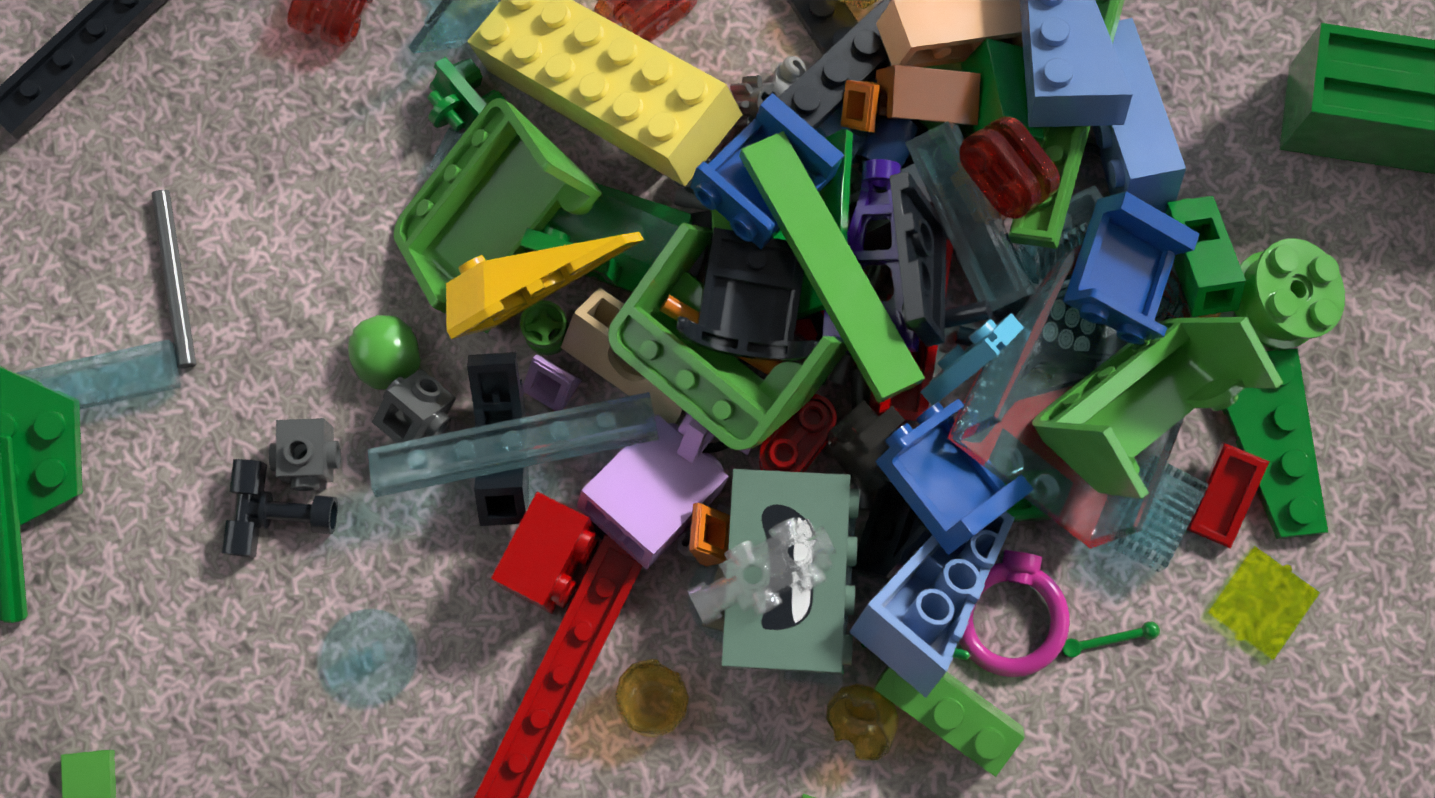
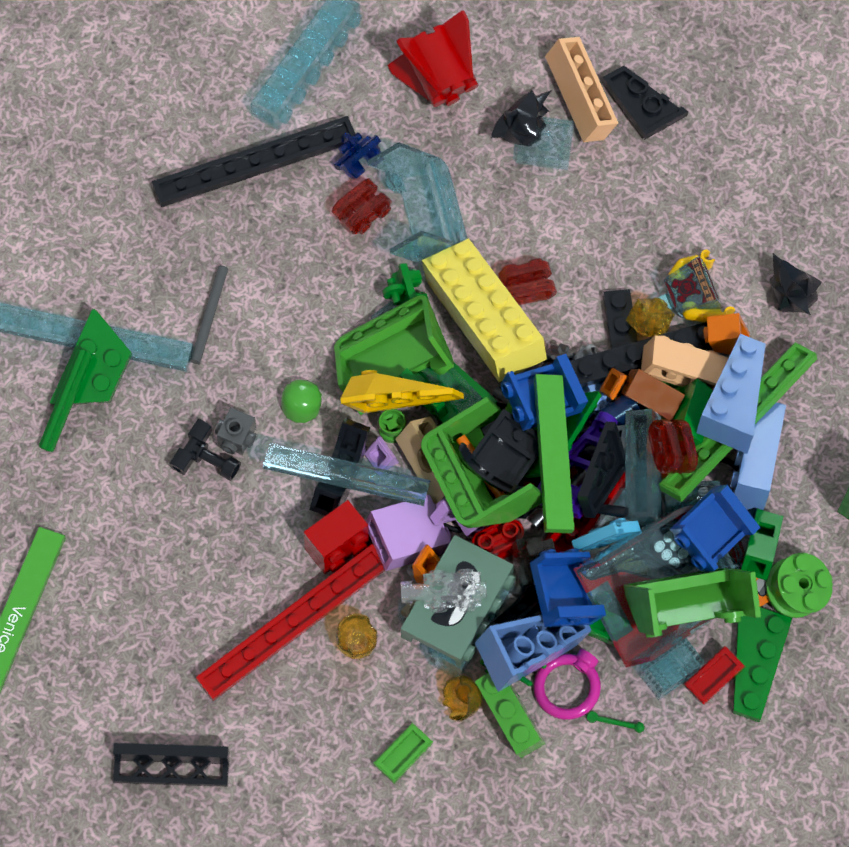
camera: 20 degrees right, 10 degrees down
(369, 656) = (219, 552): clear light blue piece -> none
(414, 408) = (304, 434): dark grey brick -> none
(1263, 602) = (708, 741): clear neon green piece -> none

